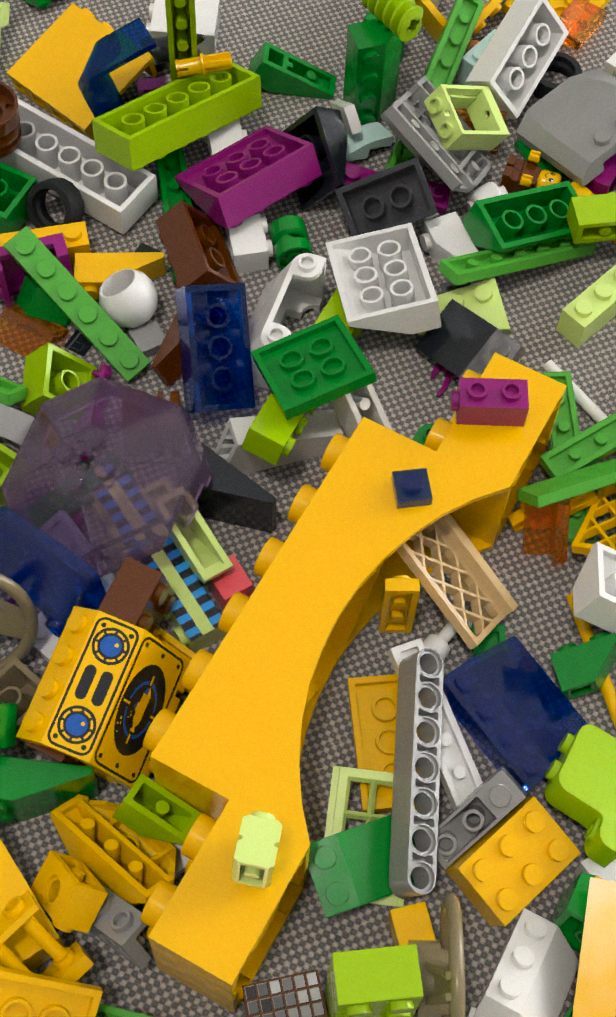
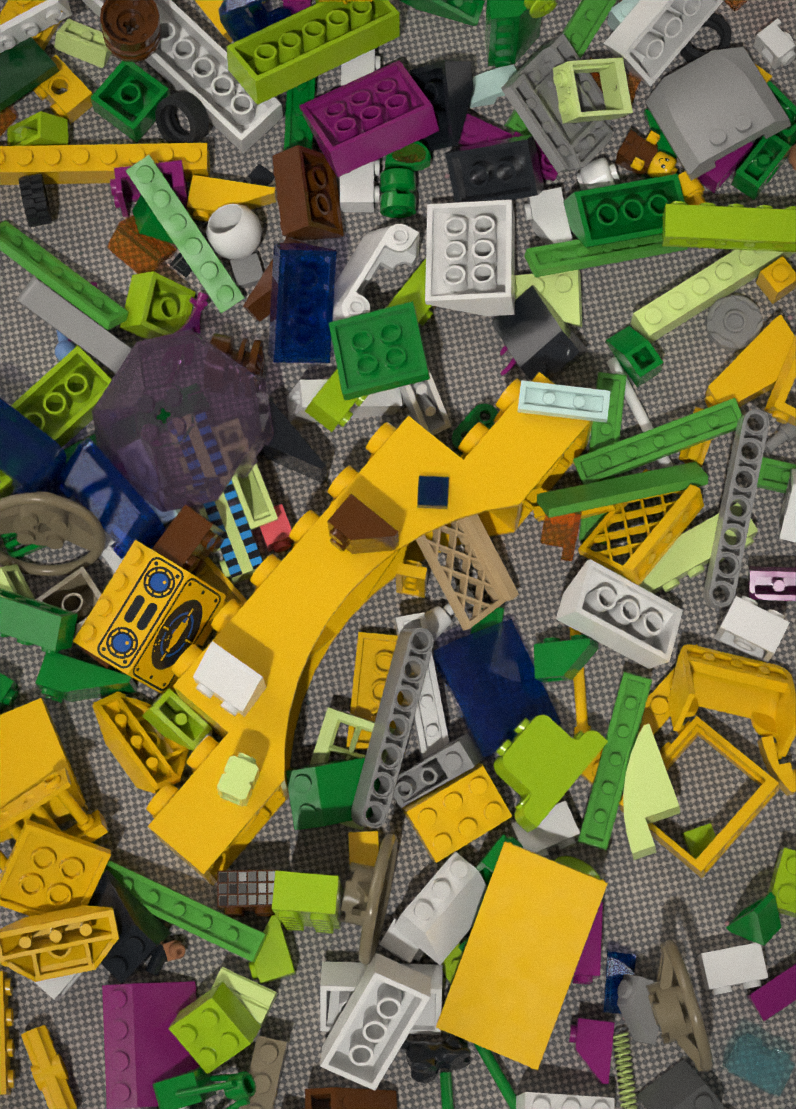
camera: 15 degrees right, 15 degrees up
(68, 892) = (97, 771): yellow brick -> none
(120, 928) = (131, 802): light grey bracket -> none
(220, 730) = (228, 680): none -> white slope
(296, 204) = (411, 157): none -> rock
(343, 532) = (360, 529): none -> reddish brown slope
(348, 115) = (479, 60): white tile -> none
(490, 401) = (518, 424): magenta brick -> none
(541, 371) = (563, 401): none -> light aqua plate
(575, 352) = (635, 355): none -> green slope

